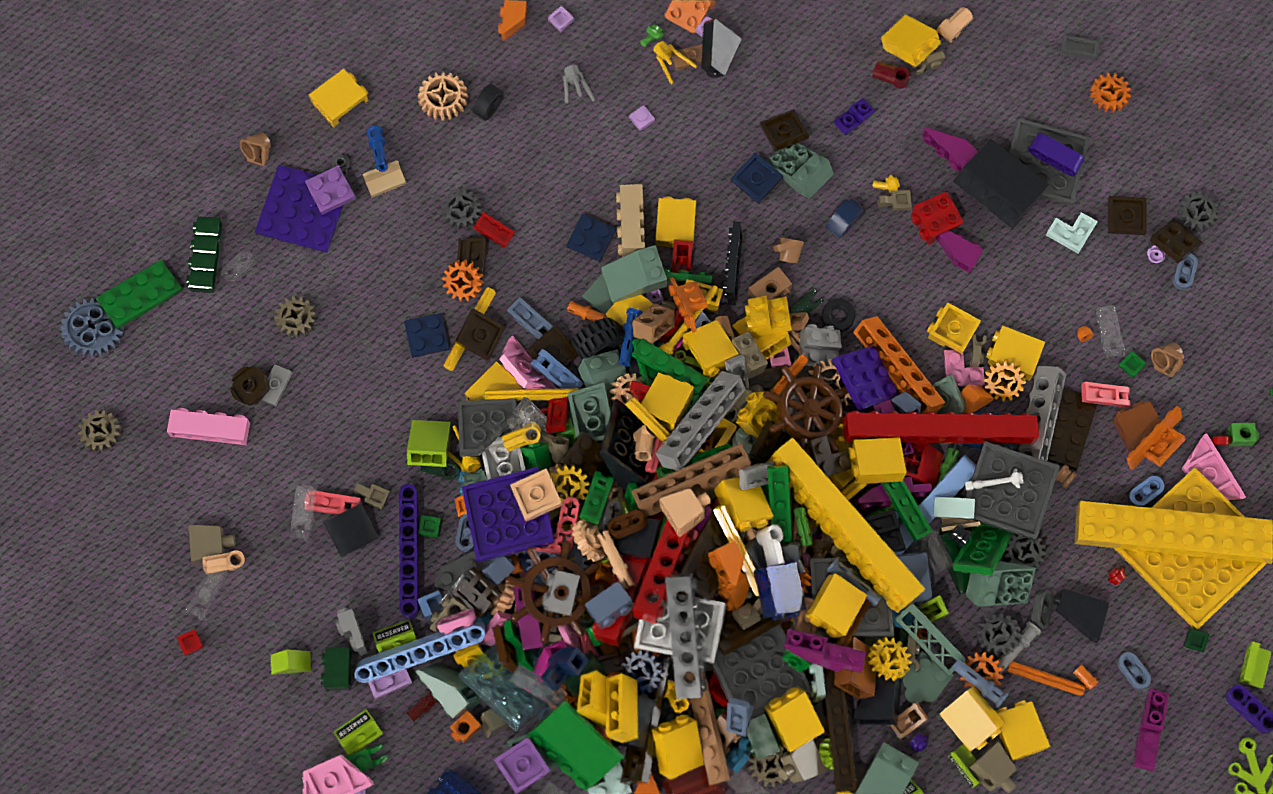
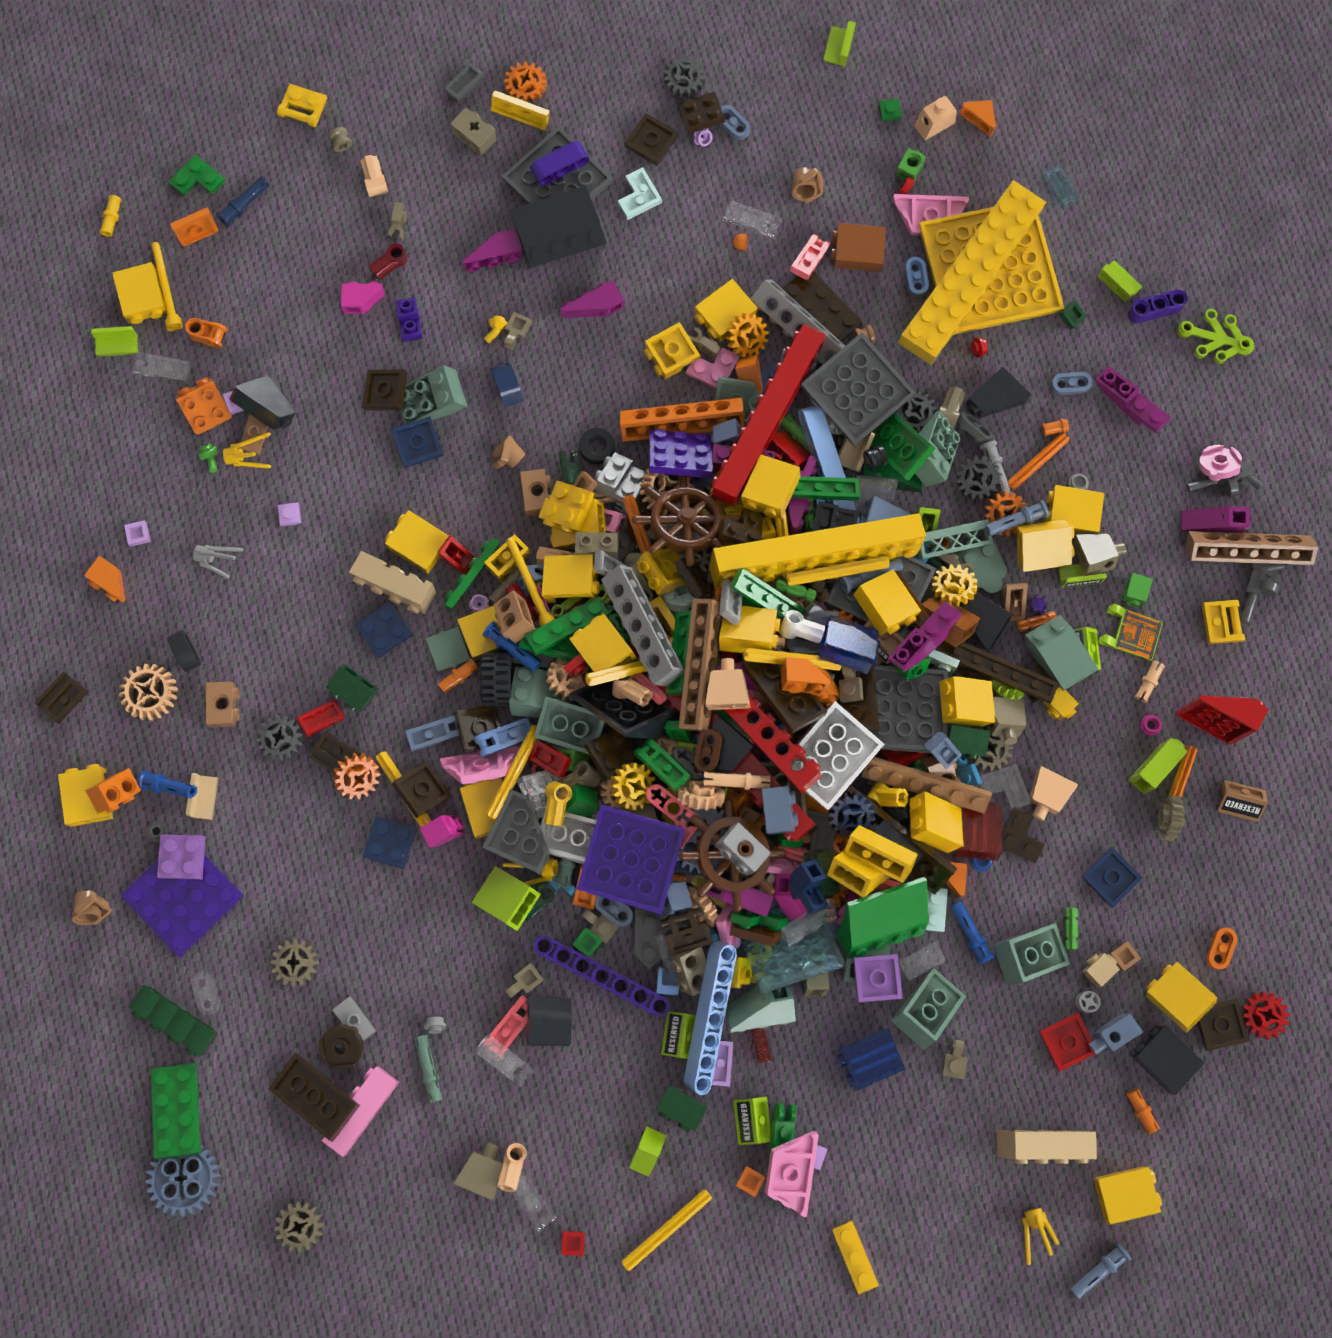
camera: 65 degrees left, 5 degrees up
(200, 386) = (314, 1097): none -> dark brown plate
(237, 710) = (666, 1230): none -> yellow axle
(267, 459) = (429, 1074): none -> sand green pin
(303, 446) = (435, 1025): none -> light grey plate
(308, 755) = (750, 1181): none -> orange plate
(350, 628) = (646, 1074): light grey plate -> none
(353, 112) = (113, 790): none -> orange brick
(403, 38) = (61, 697): none -> dark brown plate
(448, 530) = (601, 927): none -> dark tan plate
(450, 623) = (703, 966): bright pink plate -> none
(456, 367) = (442, 830): none -> dark pink slope
(467, 144) = (215, 694): none -> medium nougat brick
(467, 719) = (810, 1005): orange brick -> none
(530, 239) = (351, 688): none -> dark green brick
(536, 495) = (631, 820): light nougat plate -> none
(634, 274) = (451, 608): sand green slope -> none
(684, 687) = (894, 782): dark grey brick -> none
(688, 299) = (510, 570): orange bracket -> none
(732, 267) = (487, 507): black plate -> none
(838, 550) = (837, 571): none -> yellow axle
(847, 69) = (359, 298): none -> dark pink slope
(902, 747) = (1034, 622): none -> orange axle
(910, 40) = (367, 223): yellow brick -> none
(935, 217) = (555, 303): red bracket -> none
(954, 507) = (846, 447): light aqua slope -> none
(1016, 479) = (853, 376): white piece -> none
(1042, 67) = (473, 131): none -> dark tan brick
(1049, 580) = (952, 404): none -> dark tan piece
(1049, 722) = (1078, 481): none -> light grey plate
(1083, 101) = (520, 110): none -> yellow plate
(1132, 364) = (793, 218): green plate -> none
(1160, 442) = (886, 236): orange bracket -> none

